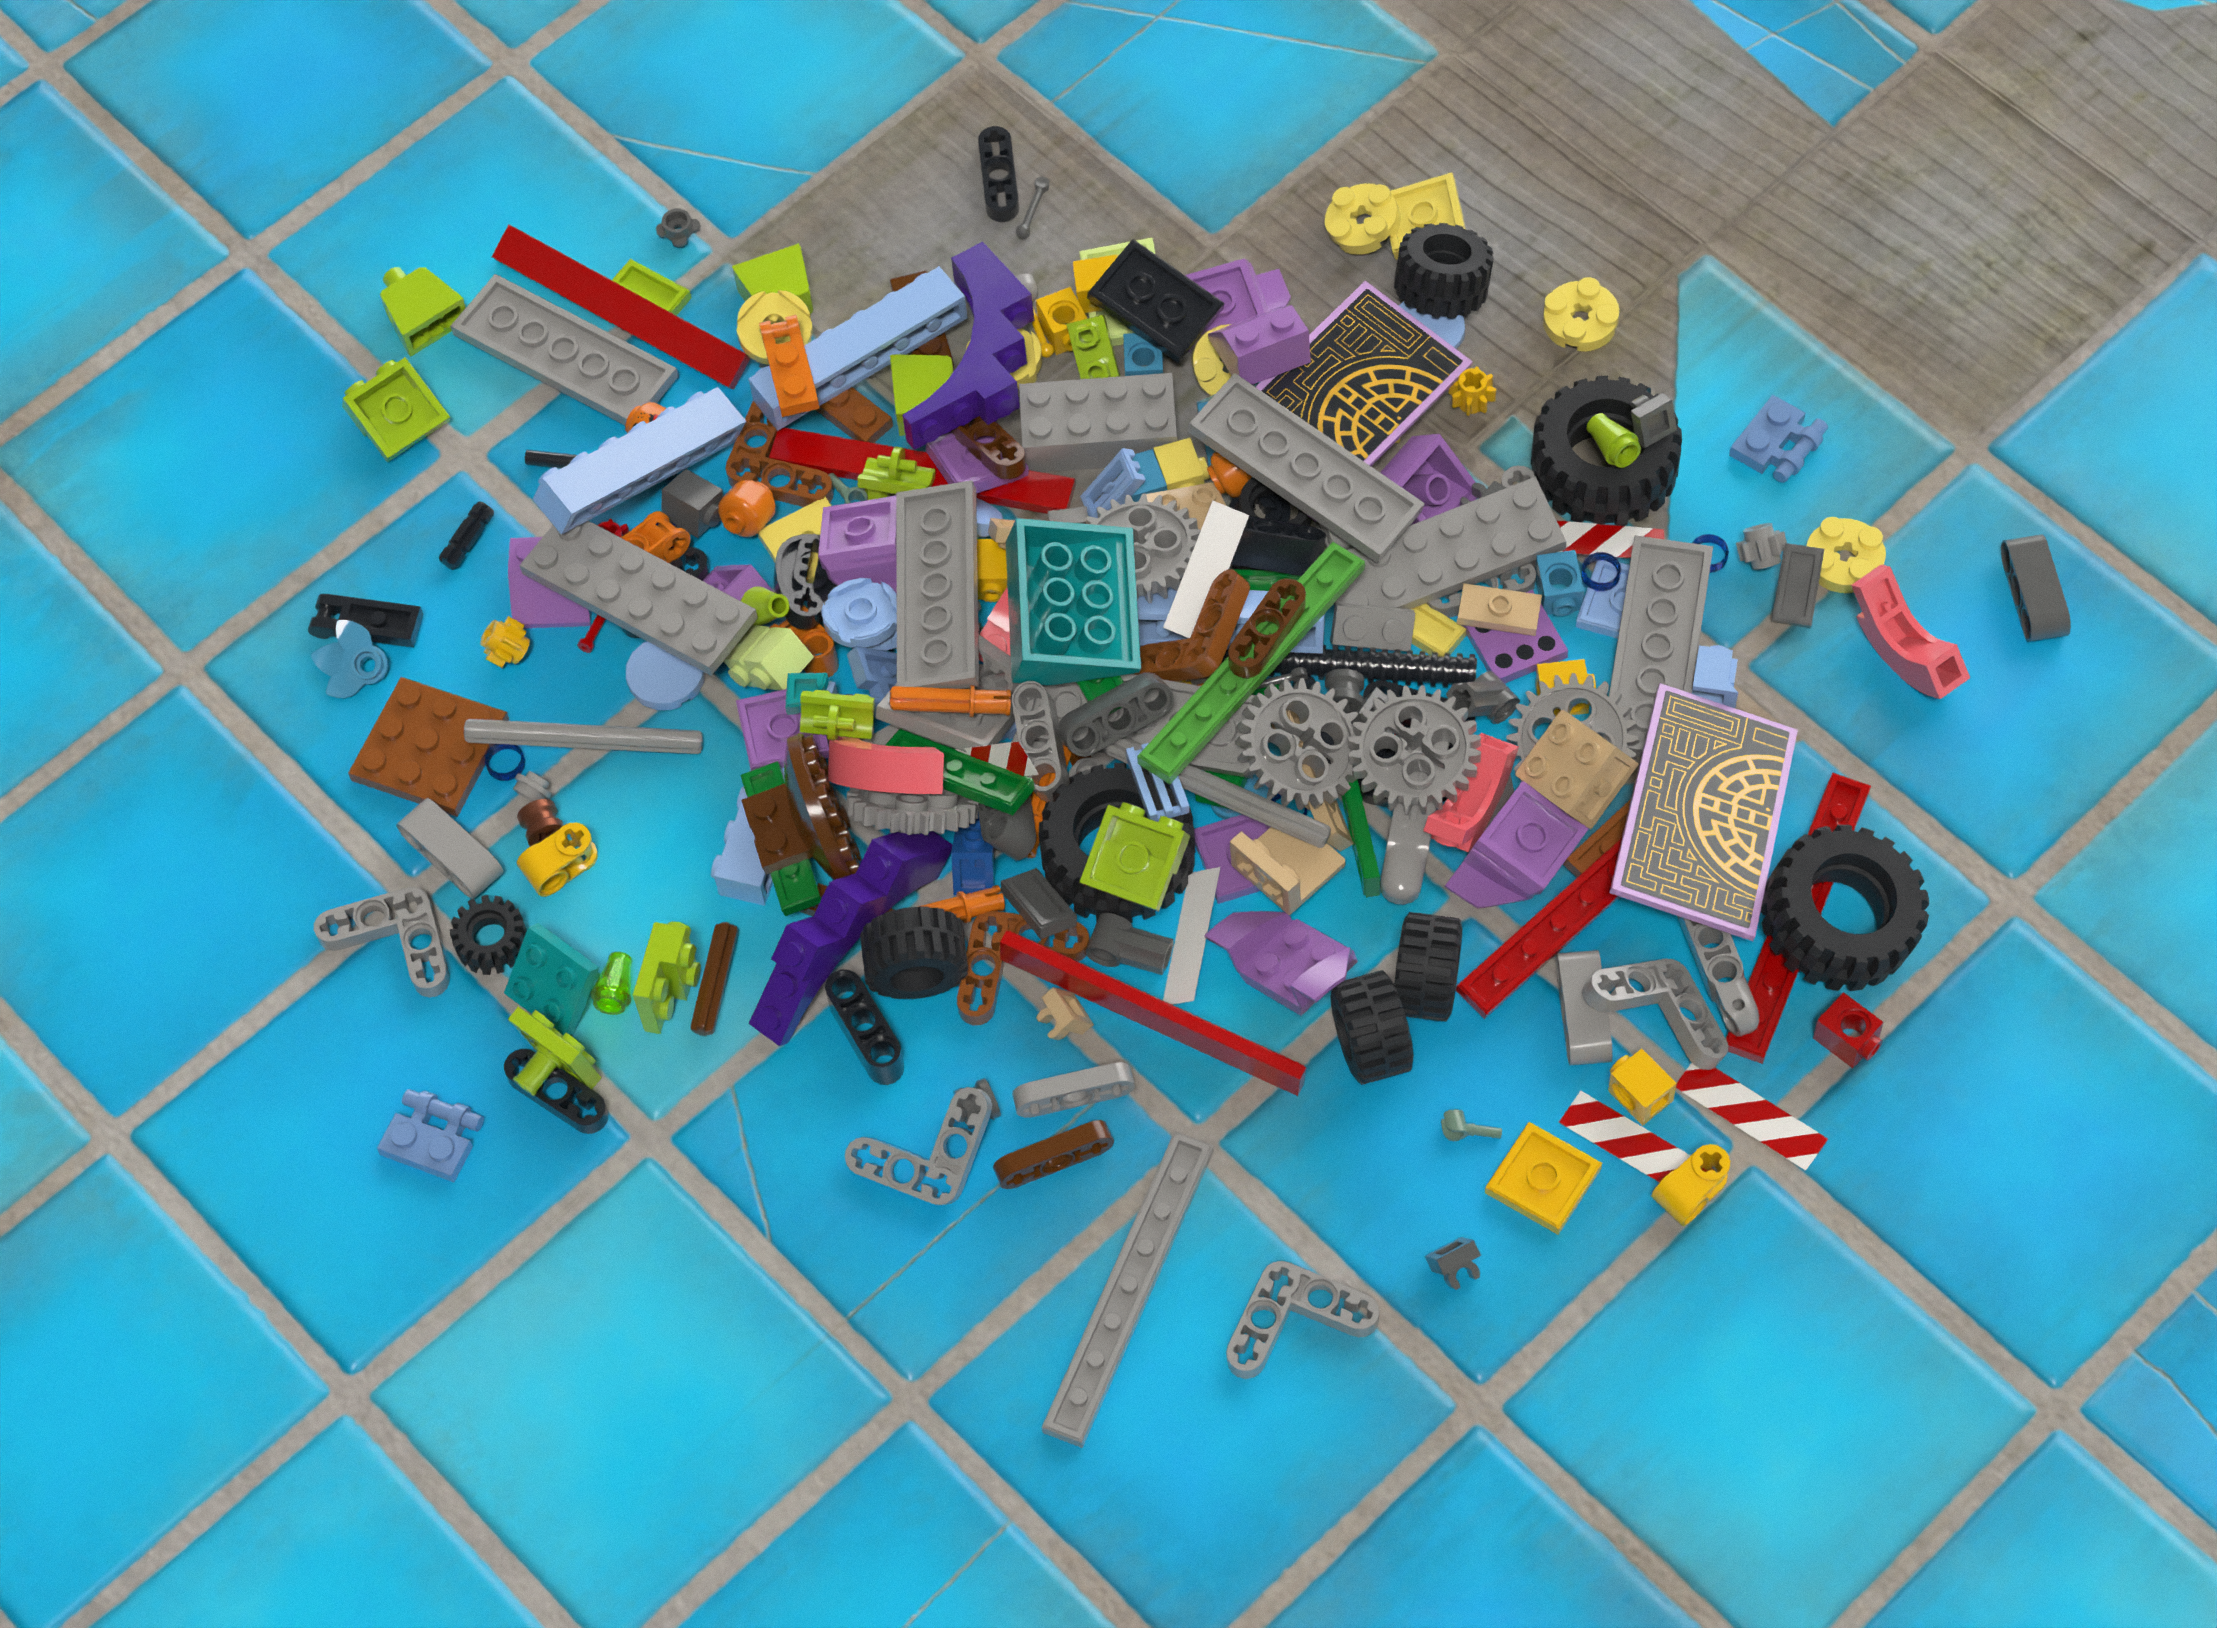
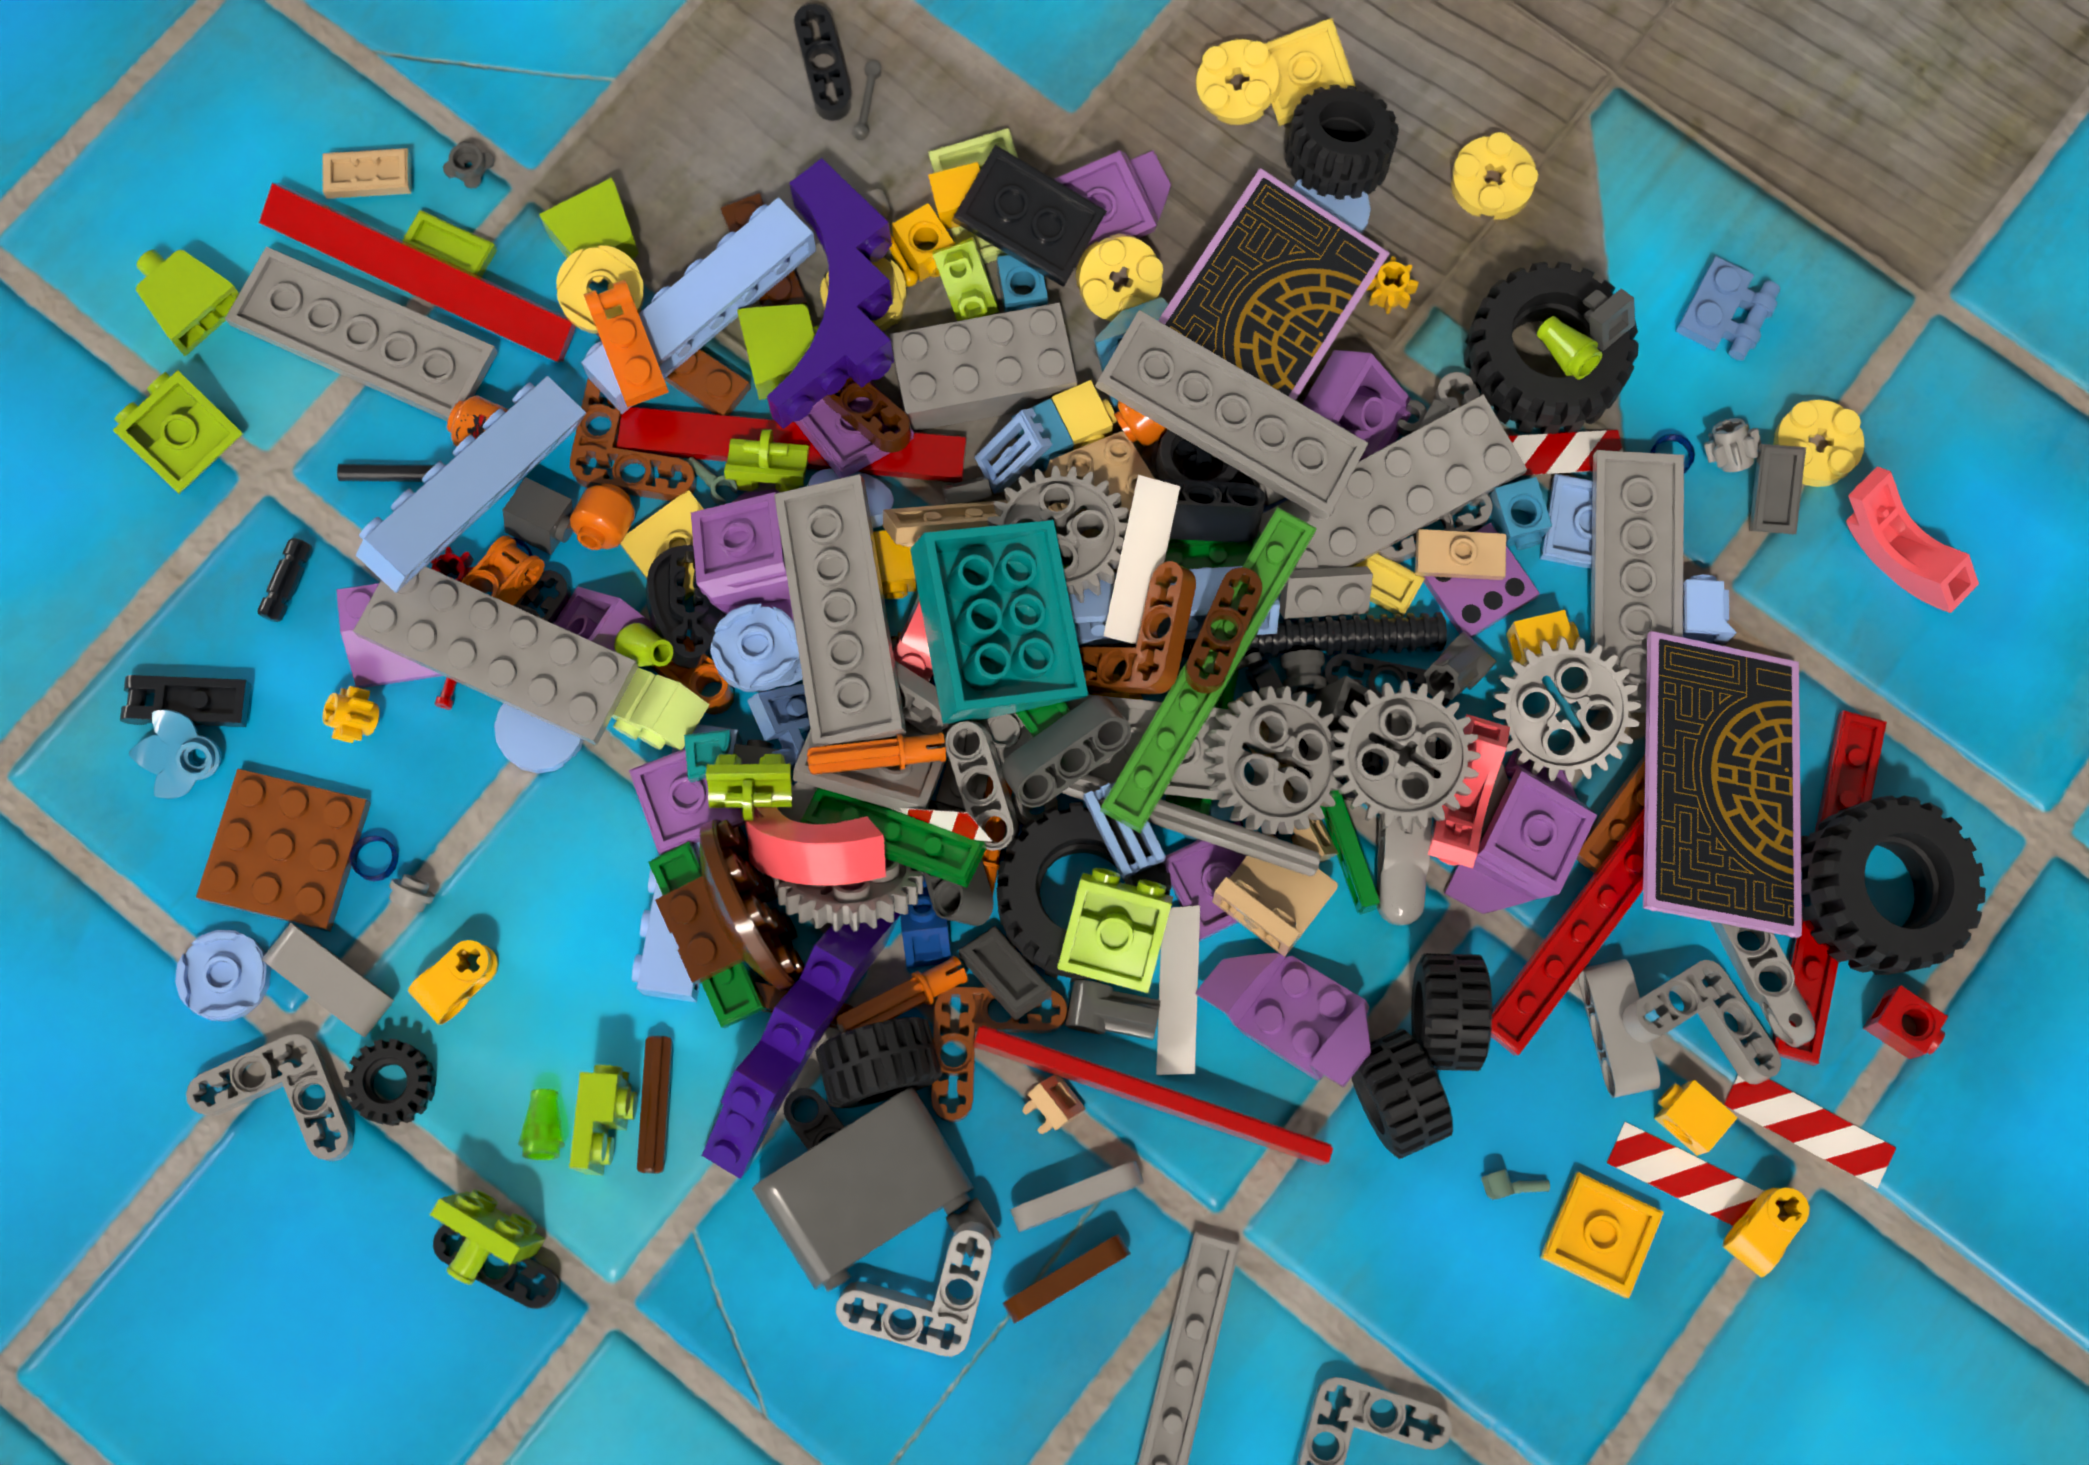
camera: 15 degrees left, 15 degrees up
(360, 839) = (223, 975): none -> light blue tile
(425, 1146) = (358, 1351): medium blue plate -> none
(539, 820) = (428, 937): copper wheel -> none
(551, 979) = (471, 1138): teal plate -> none
(583, 736) = (458, 823): light grey axle -> none
(590, 226) = (367, 173): none -> tan plate
(882, 1051) = (863, 1188): none -> dark grey windscreen
(1263, 344) = (1161, 263): medium lavender slope -> none
(1452, 1257) = (1522, 1350): dark grey tile -> none
(1576, 769) = (1576, 750): tan bracket -> none
(1606, 557) = (1574, 479): clear blue axle -> none
(2035, 588) = (2029, 463): dark grey beam -> none

